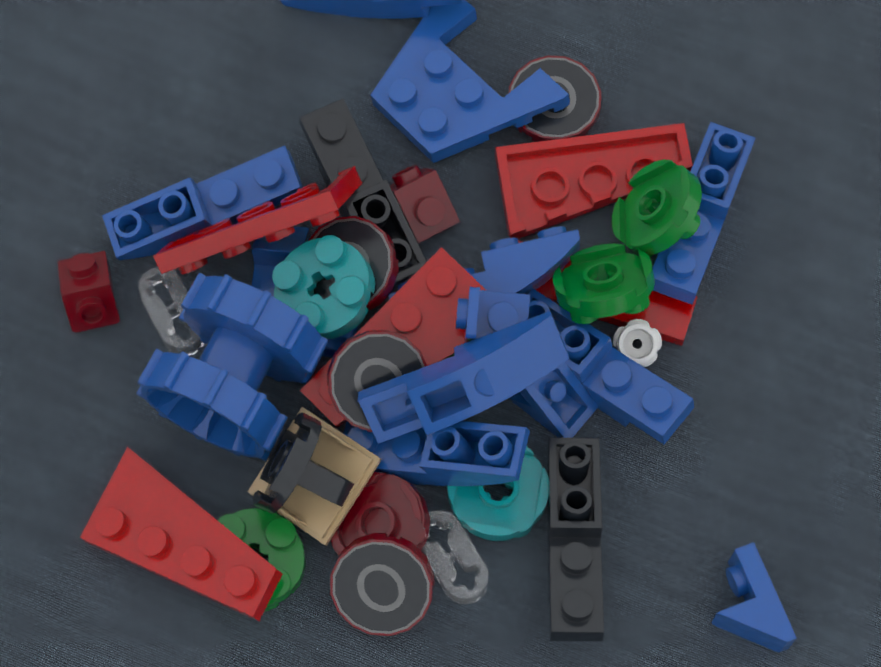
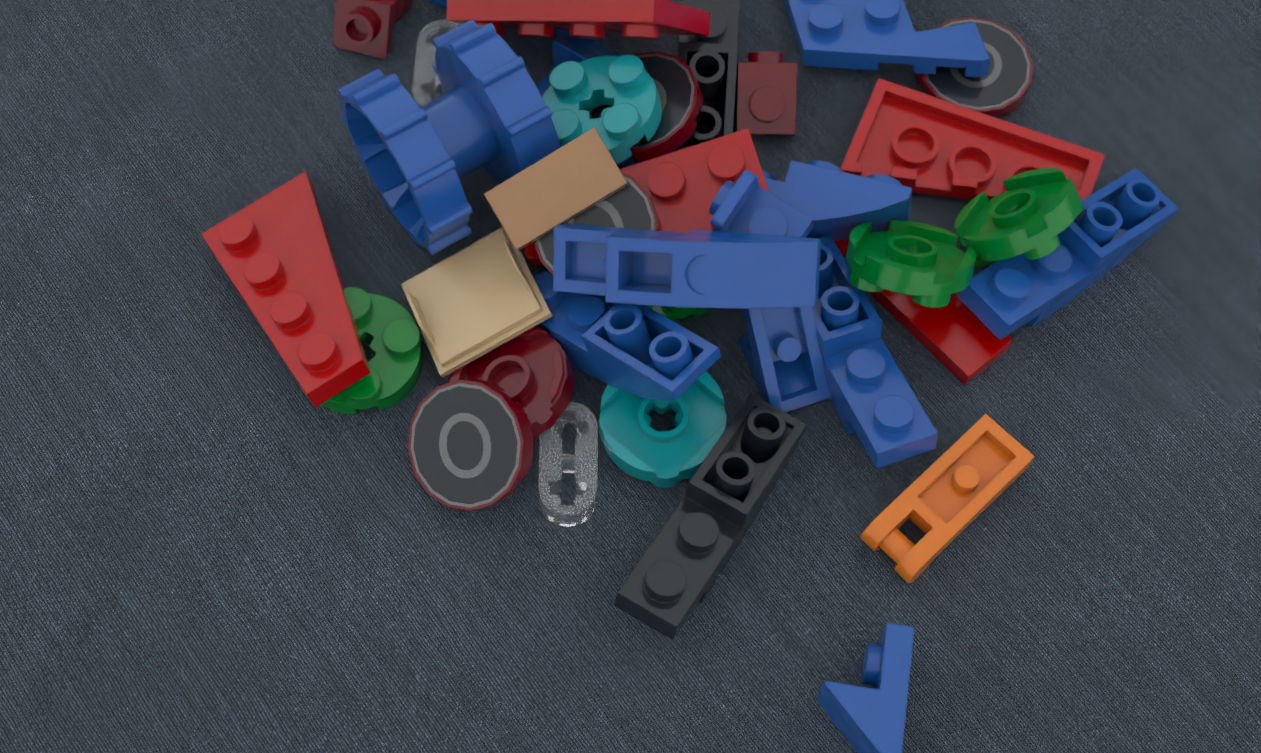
camera: 30 degrees right, 5 degrees down
(292, 466) = (446, 263): black tile -> none
(340, 370) = (556, 189): none -> medium nougat tile
(640, 330) = (926, 341): white plate -> none
(719, 434) = (948, 496): none -> orange plate

